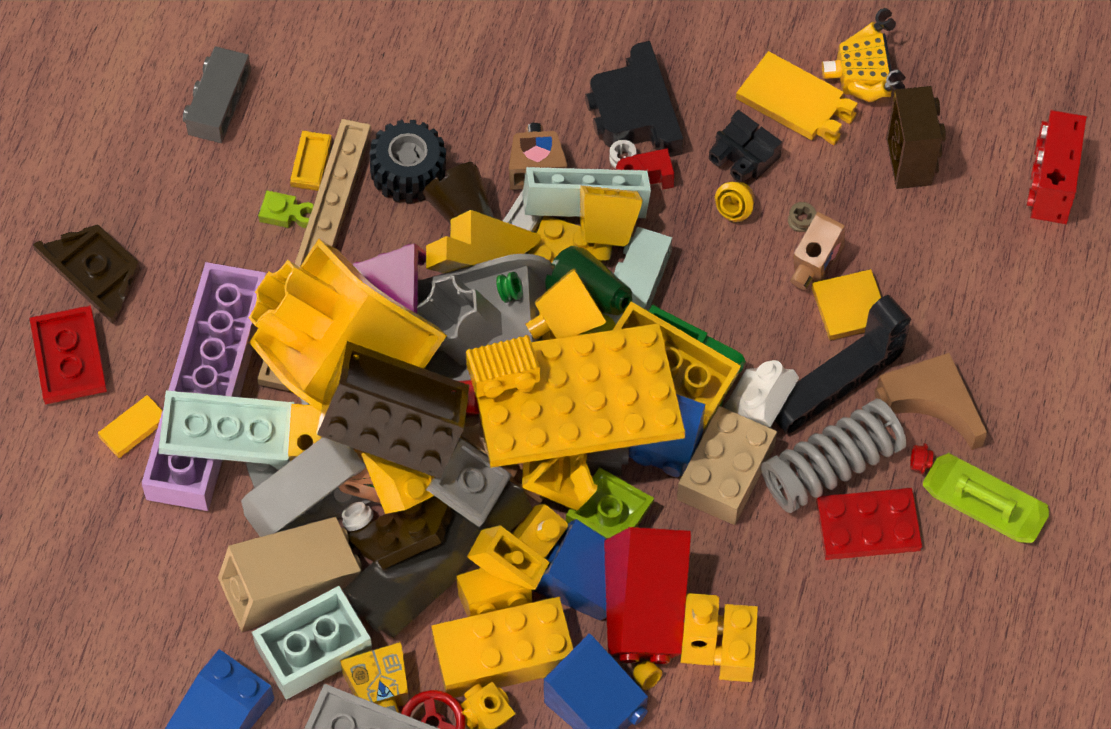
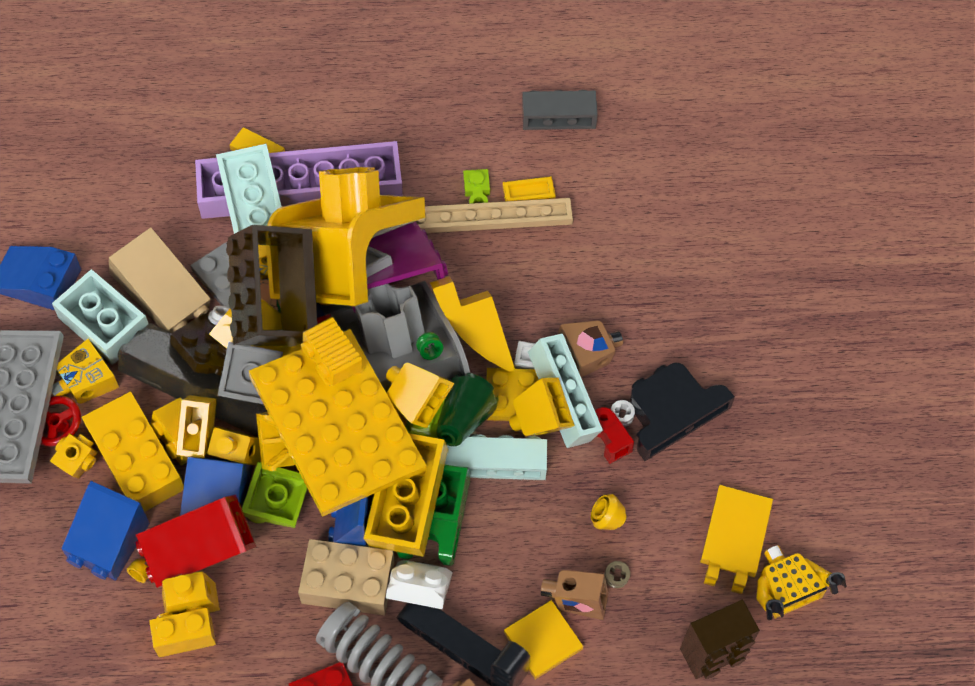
camera: 70 degrees right, 0 degrees up
(68, 354) = (301, 88): red plate -> none
(93, 266) = (380, 81): dark brown wing -> none
(300, 485) = (208, 256): light grey piece -> none
(406, 160) = (548, 254): black wheel -> none
(459, 192) = (524, 304): dark brown cone -> none
(747, 146) = (667, 508): black hips -> none

